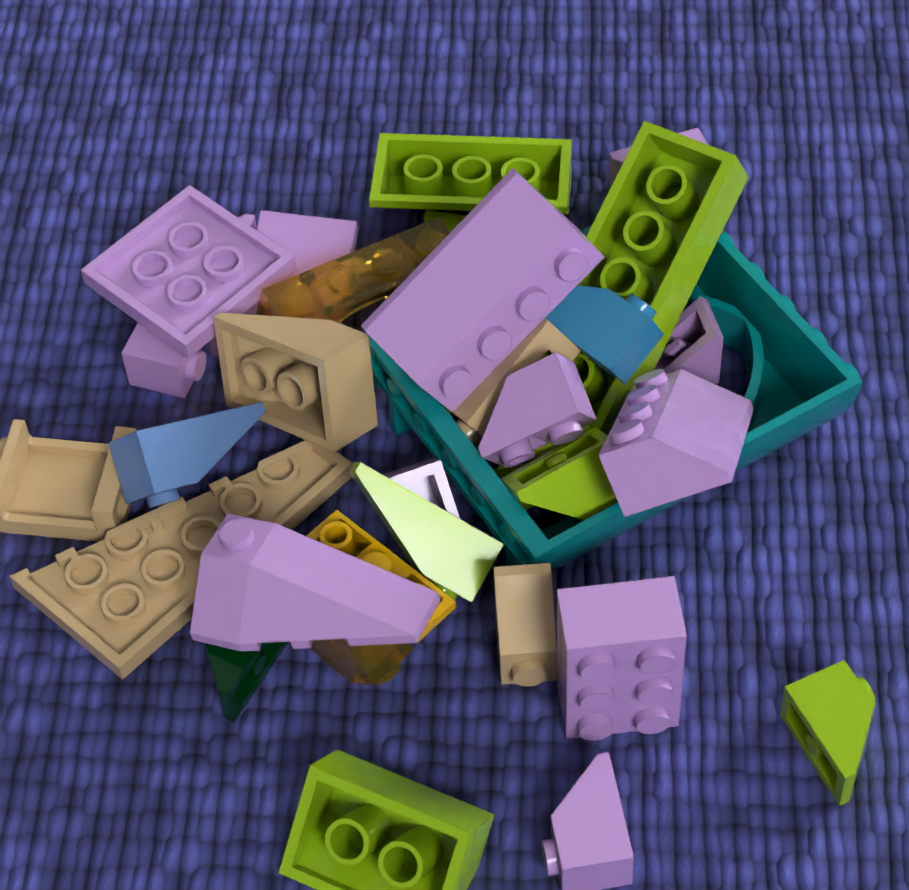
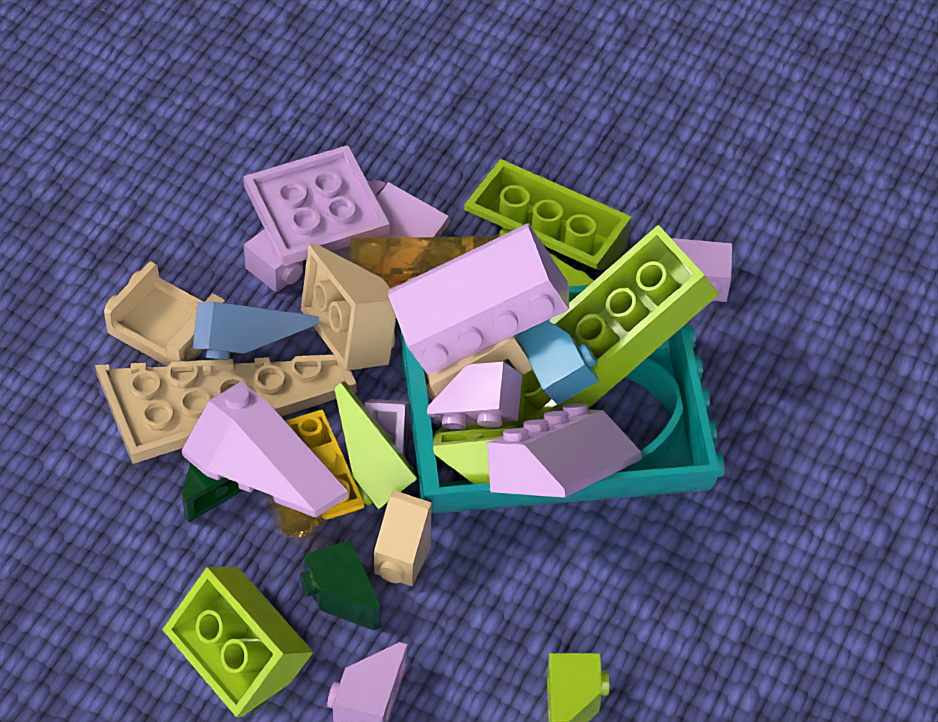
camera: 20 degrees right, 0 degrees up
(478, 716) = (341, 585): none -> dark green slope
(620, 657) = (444, 585): lavender brick -> none
(695, 344) = (629, 400): lavender slope -> none

